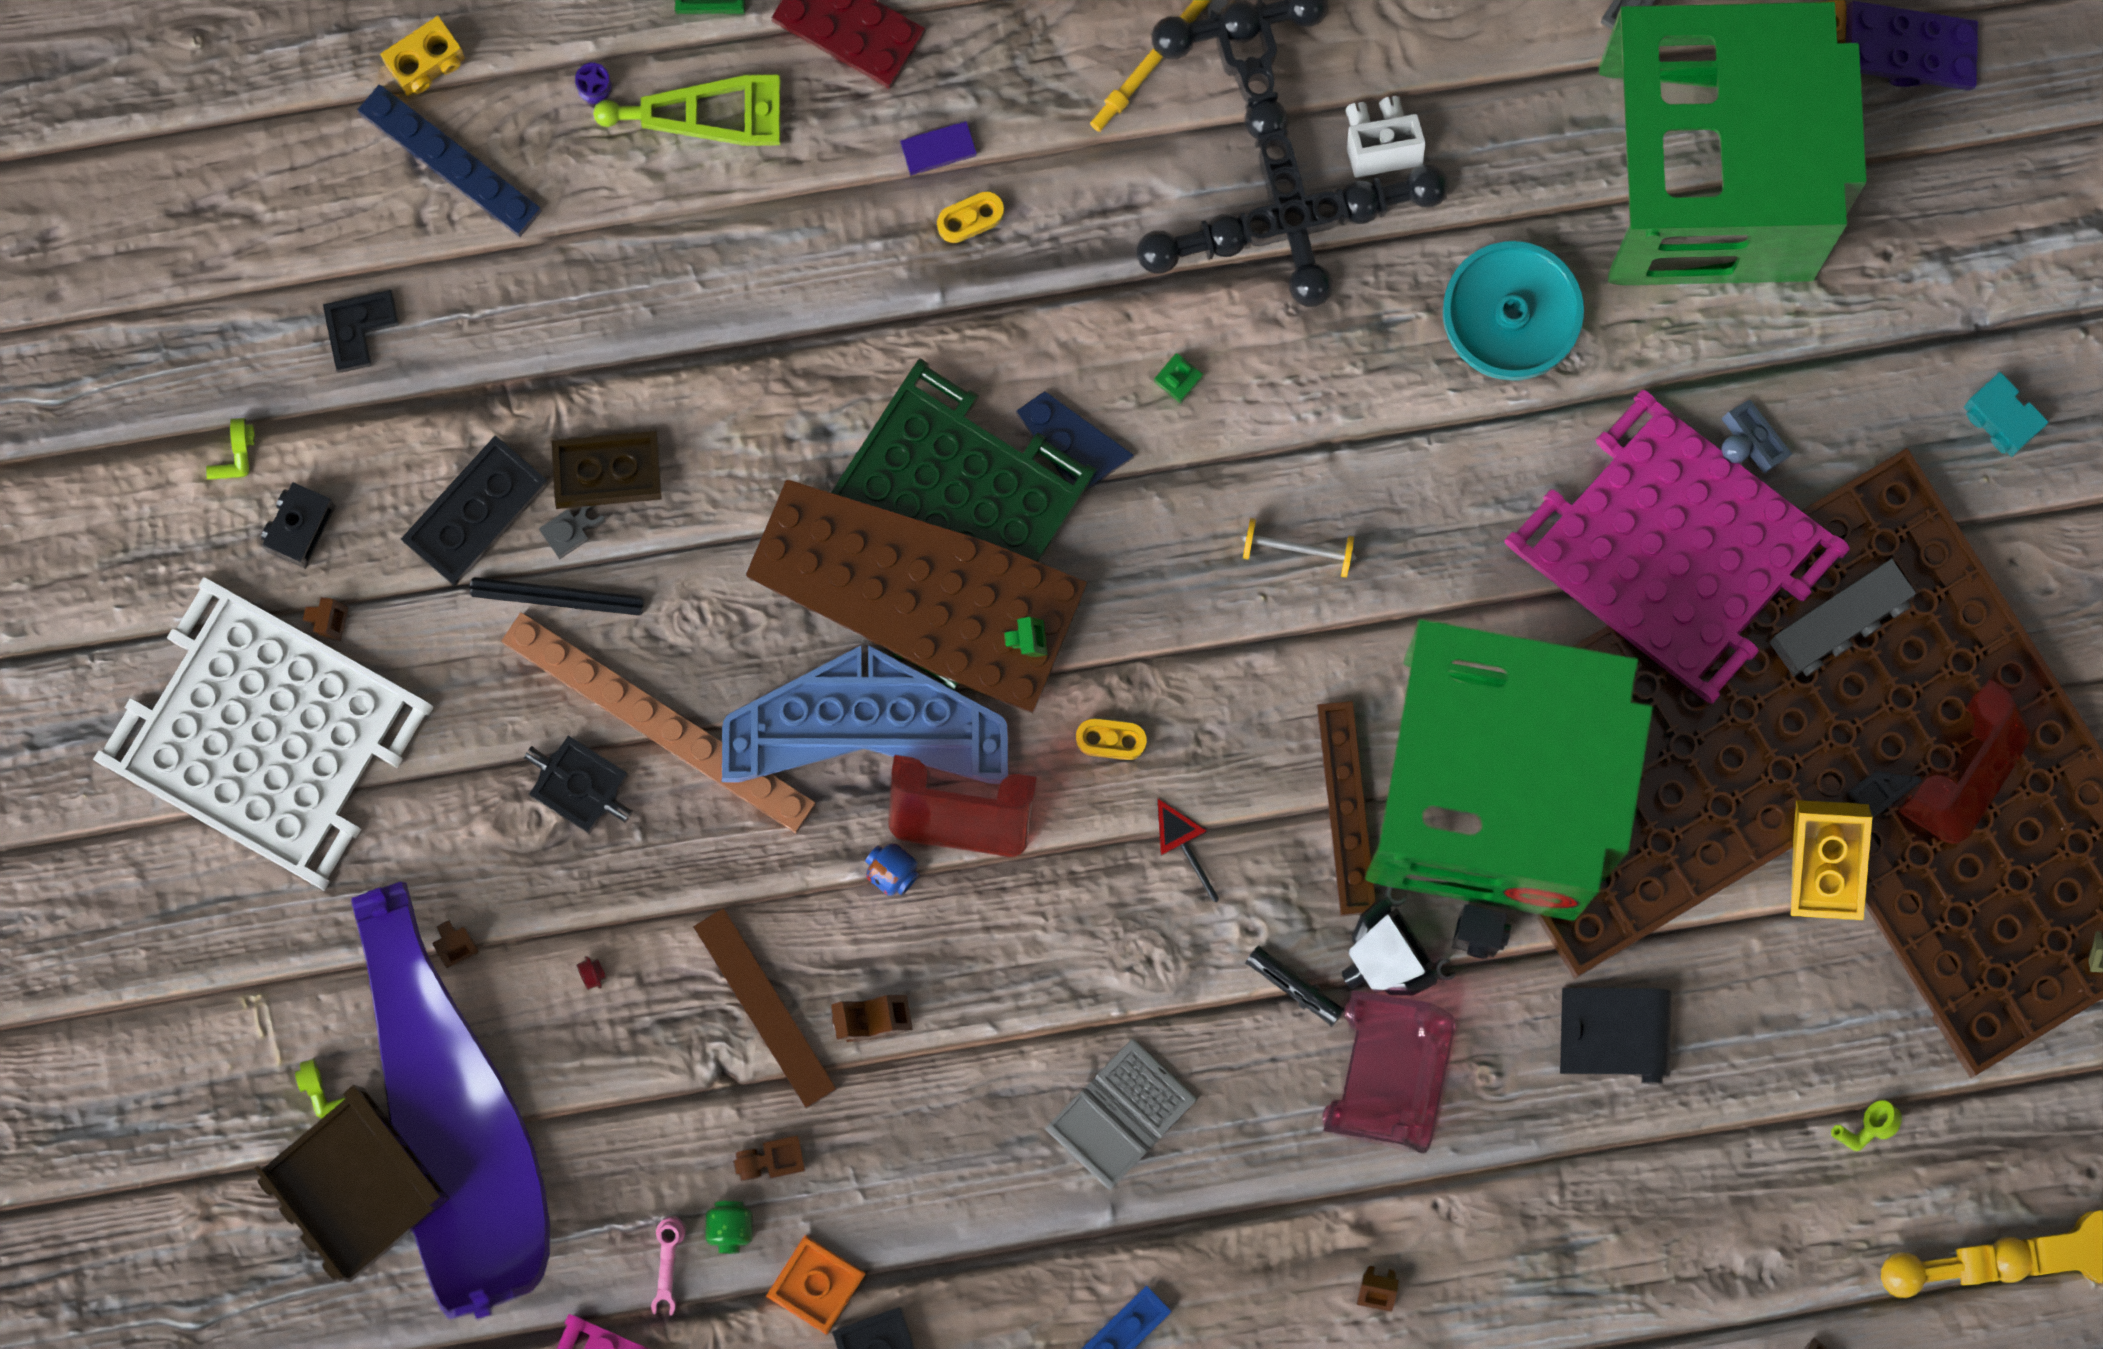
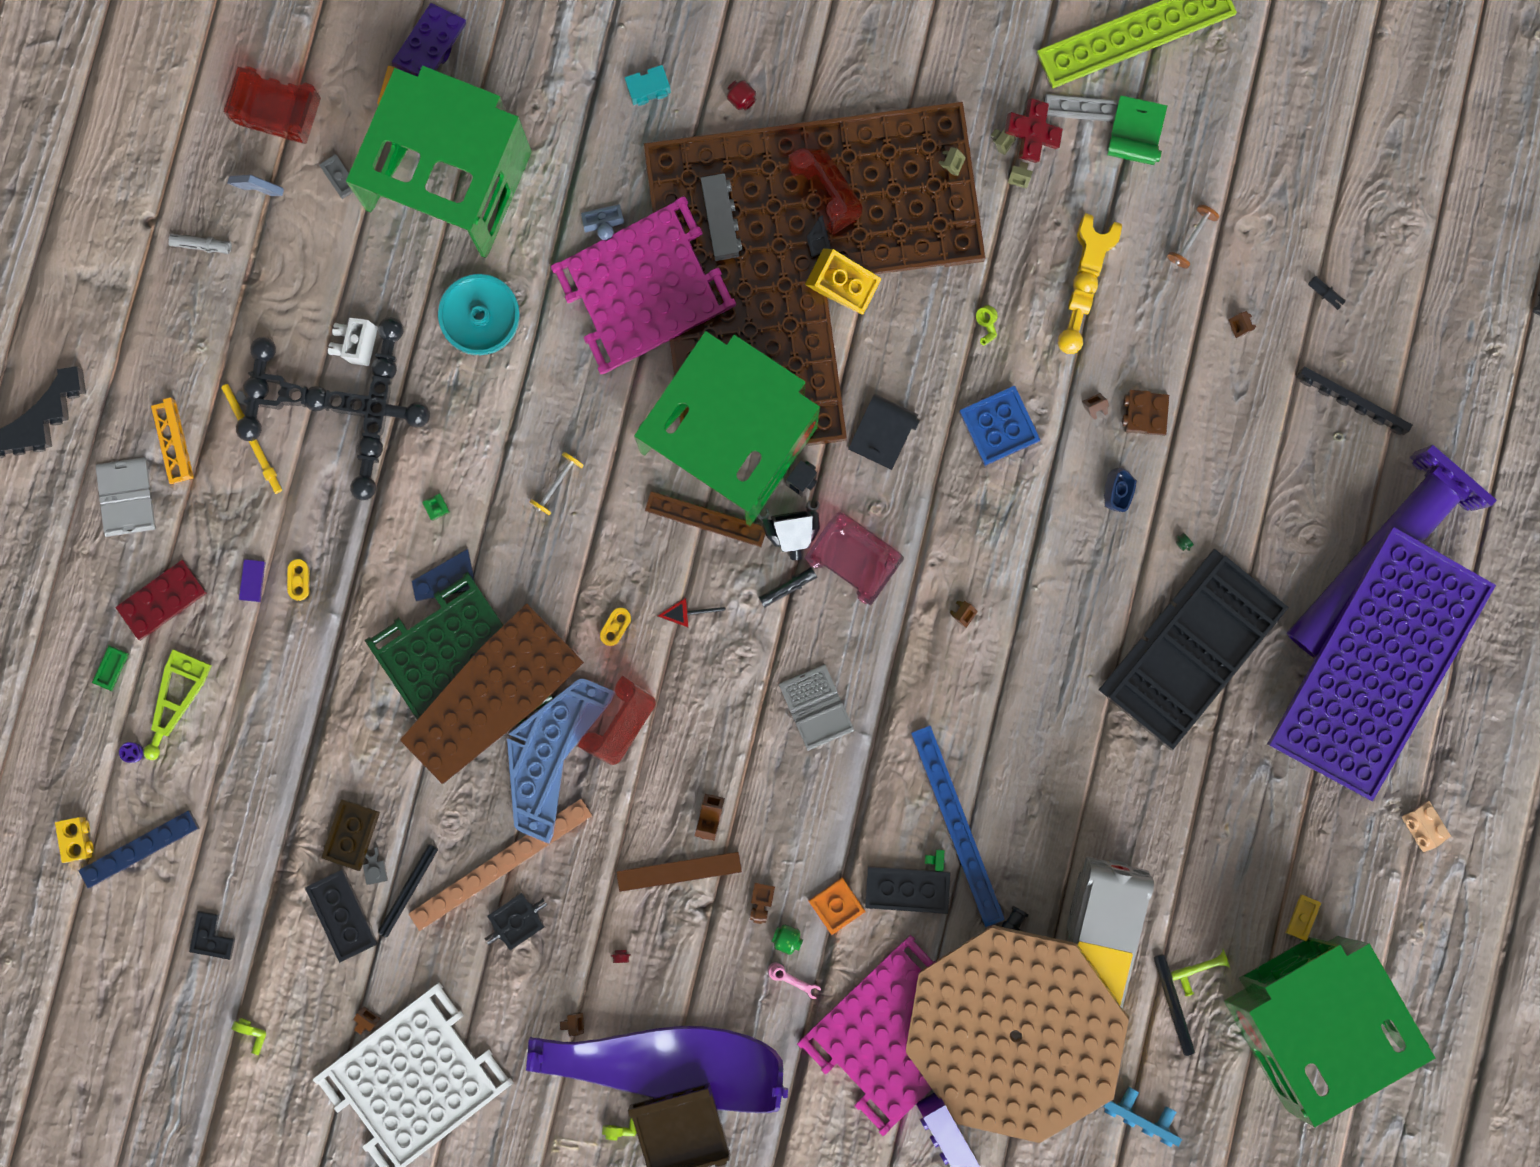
camera: 65 degrees left, 5 degrees up
(297, 524) = (306, 1016): black brick -> none
(891, 869) = (634, 773): blue head -> none
(1029, 637) = (543, 646): green tile -> none
(1711, 1218) = (999, 425): none -> blue plate
(2059, 569) = (741, 95): none -> dark red head

